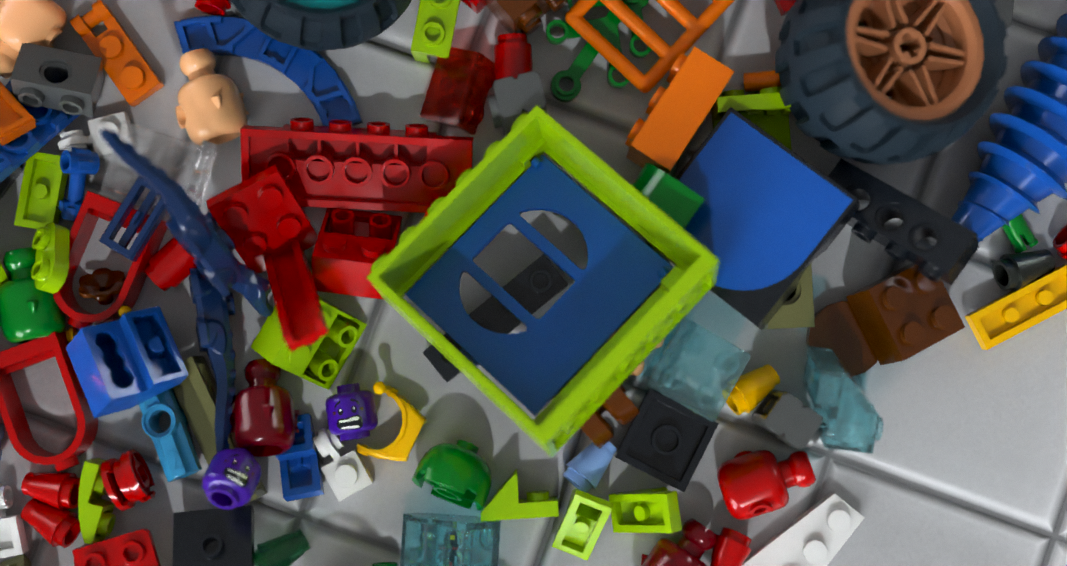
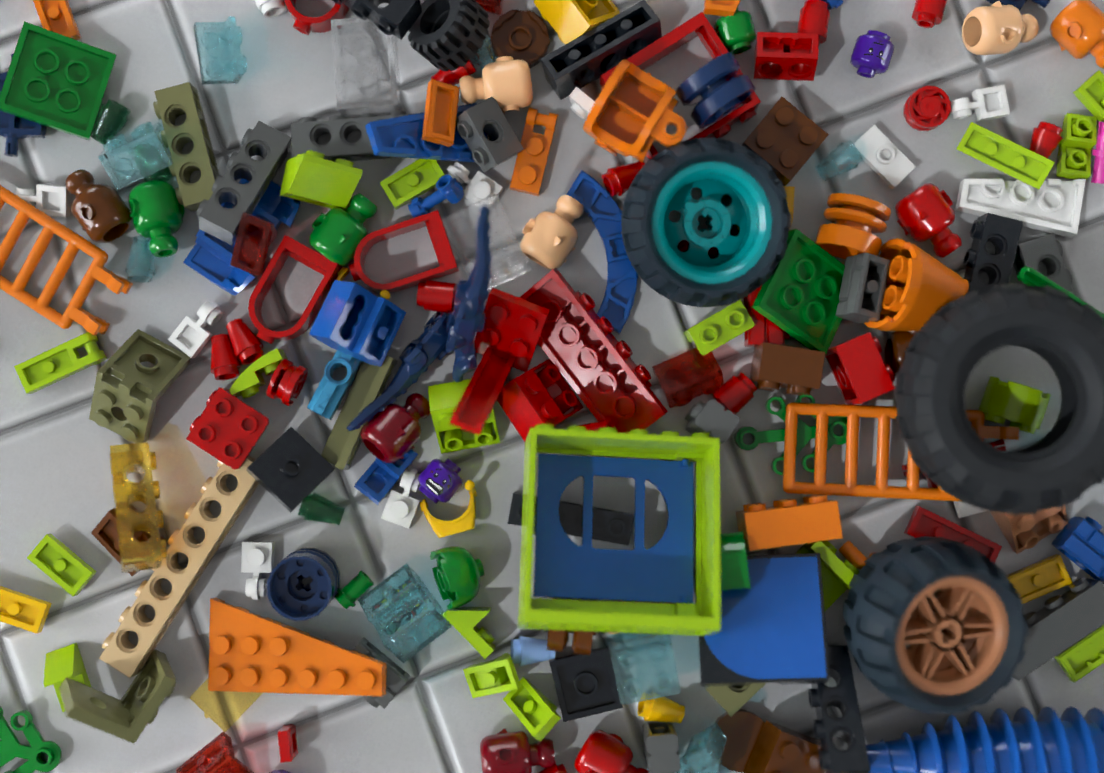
camera: 50 degrees right, 0 degrees up
(51, 257) = (380, 224): lime plate -> none
(101, 285) = (388, 265): reddish brown plant -> none
(122, 214) = (445, 255): dark blue tile -> none
(231, 478) = (343, 447): dark purple head -> none

